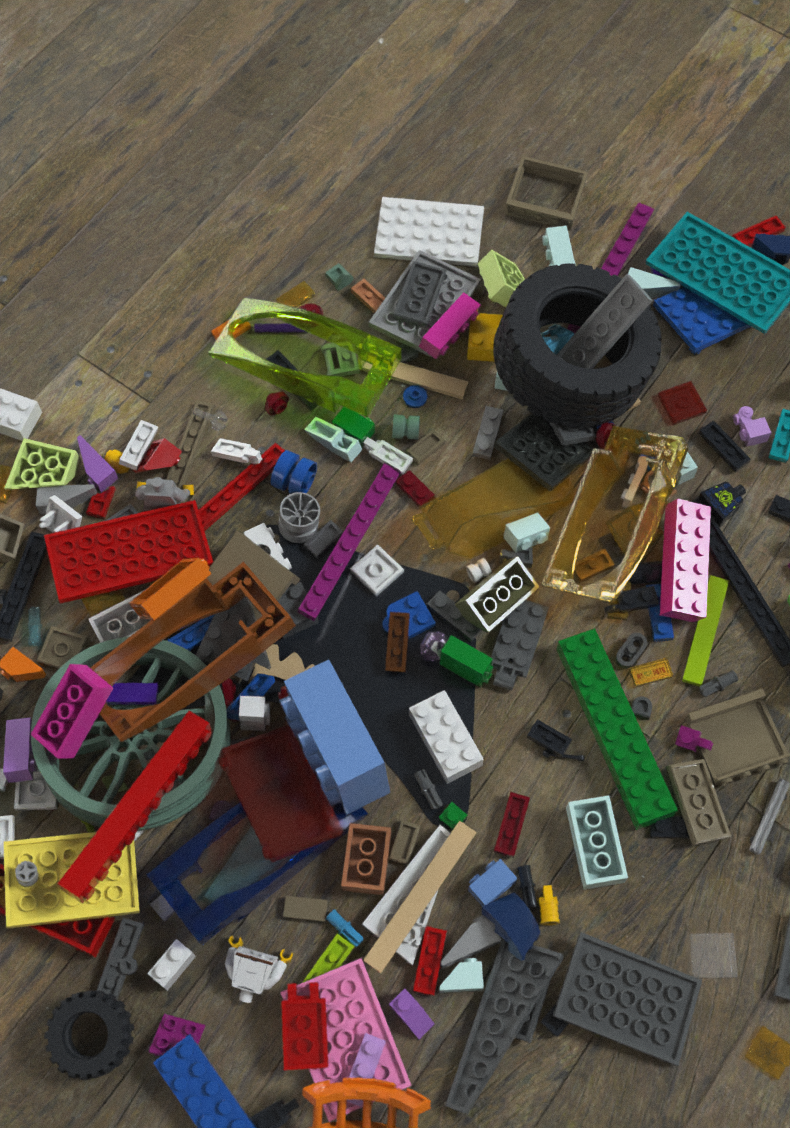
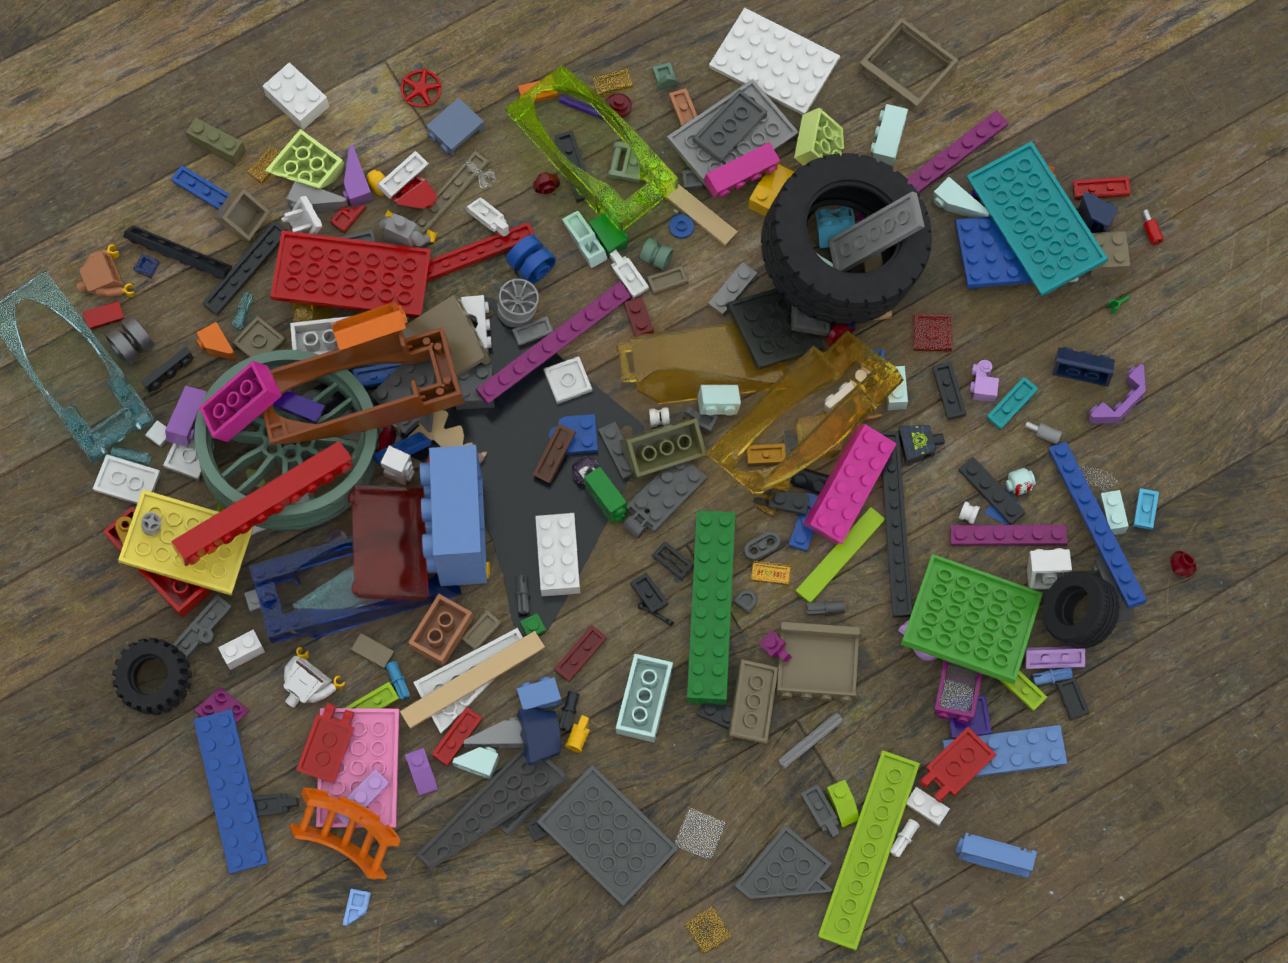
camera: 25 degrees right, 5 degrees up
(121, 365) = (421, 87): none -> red wheel
(168, 386) = (454, 126): none -> sand blue panel
(537, 700) = (690, 566): none -> black tile

